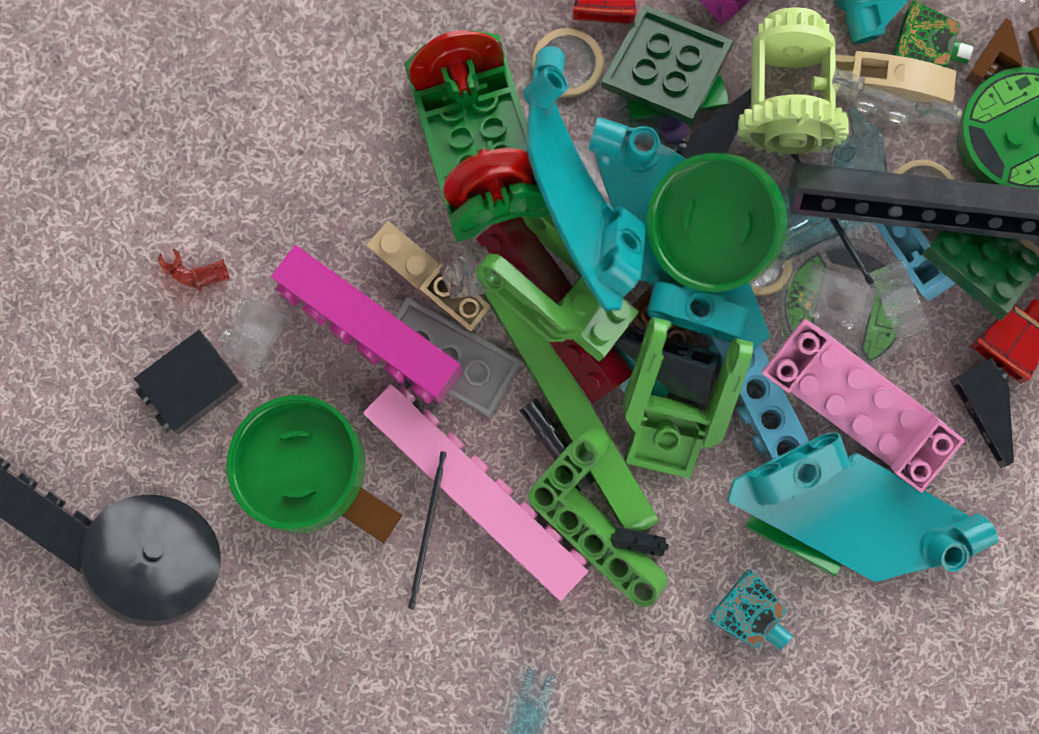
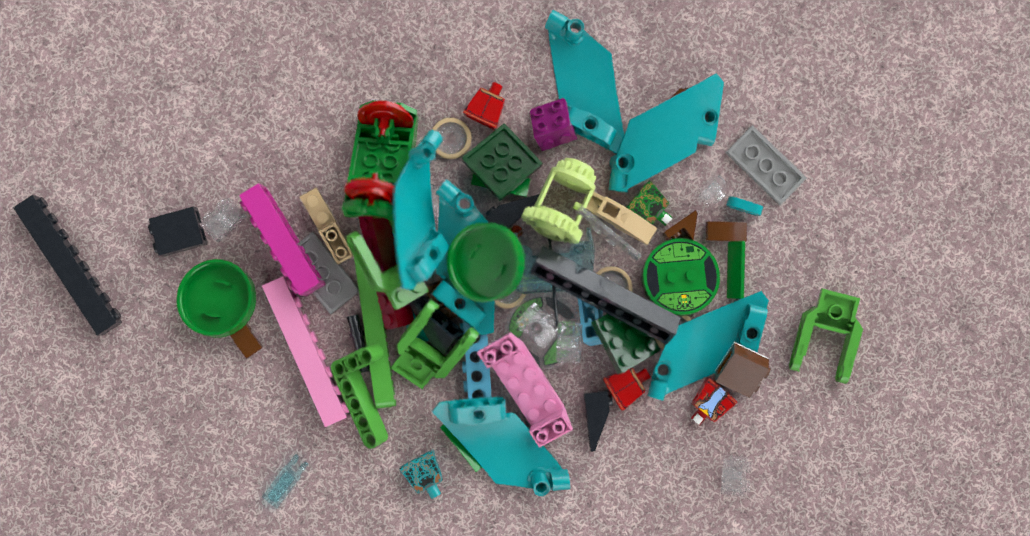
camera: 20 degrees right, 5 degrees up
(150, 560) = (119, 319): black dish -> none
(196, 277) = (203, 175): clear red piece -> none
(425, 539) = (271, 361): black piece -> none
(460, 272) = (341, 230): clear brick -> none
(639, 541) = (380, 412): black axle -> none
(677, 134) = (490, 202): medium lavender hinge -> none

